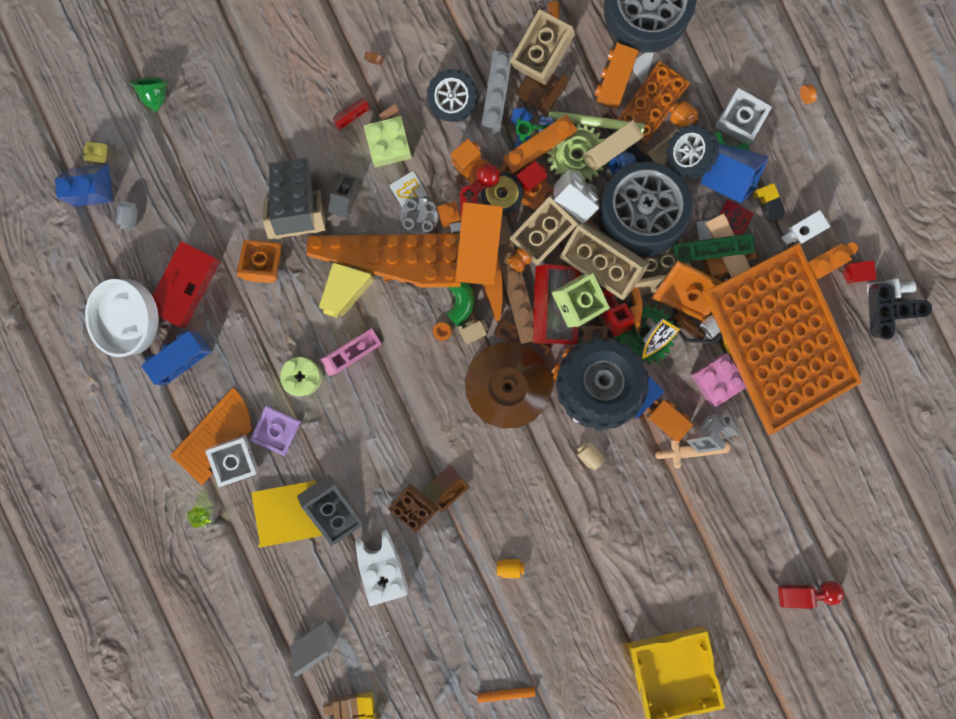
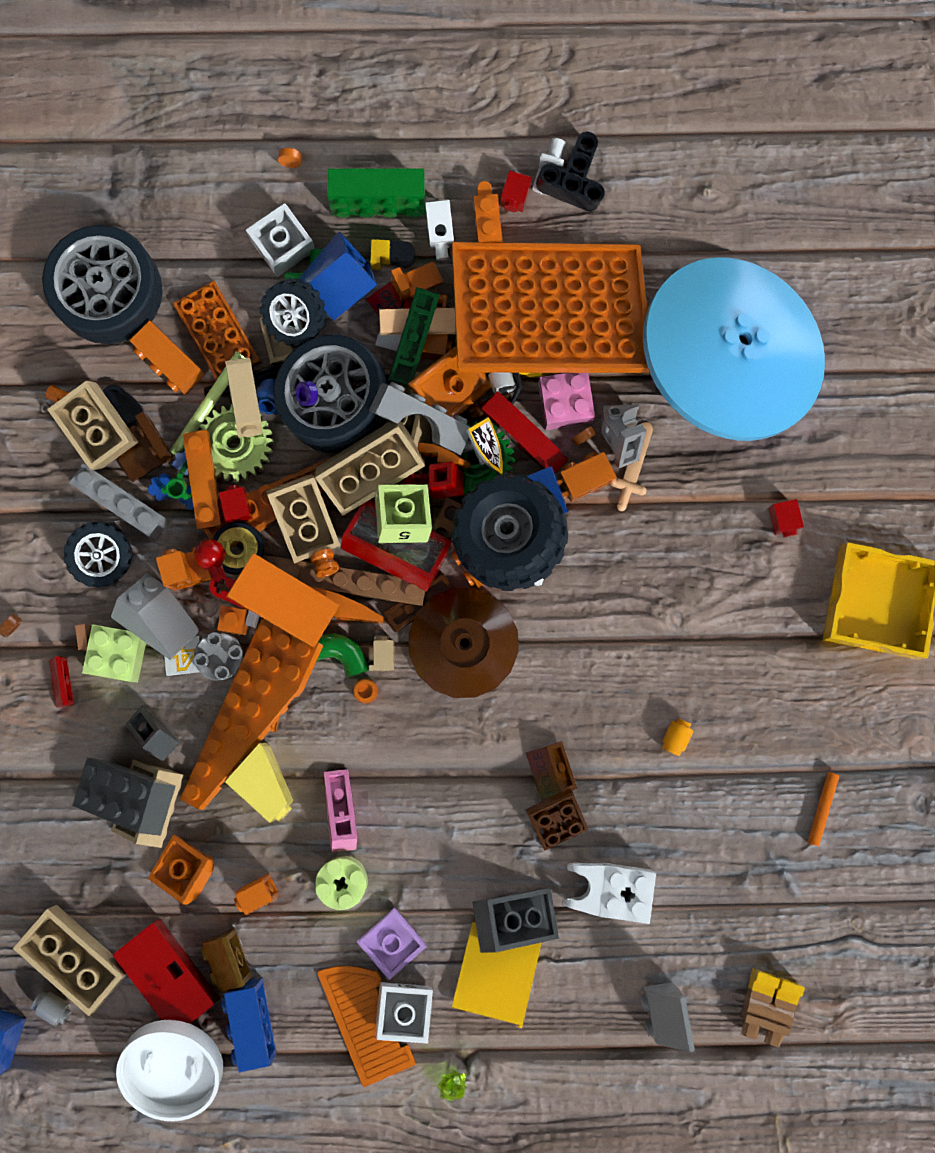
camera: 70 degrees left, 5 degrees down
(165, 213) = (71, 959): none -> tan brick
(212, 321) = (226, 961): none -> pearl gold slope
(266, 320) = (256, 894): none -> orange brick
(426, 157) = (155, 616): none -> light grey slope
(569, 61) = (123, 403): none -> black tile
(576, 195) = (281, 464): white brick -> none
(590, 455) = (587, 585): tan brick -> none
(636, 190) = (306, 393): none -> dark purple tile
(642, 66) = (170, 325): white sticker -> none
(657, 259) = (395, 405): none -> light grey arch
(680, 360) = (524, 433): none -> red slope
(683, 114) = (247, 303): orange head -> none
(698, 404) = (583, 436): none -> dark orange tile
(705, 578) = (786, 518): none -> red brick
(761, 232) = (422, 277): none -> orange bracket
(787, 479) = (706, 368): none -> medium azure dish
(806, 596) = (855, 412): red beam -> none
(811, 170) = (377, 192): none -> green brick

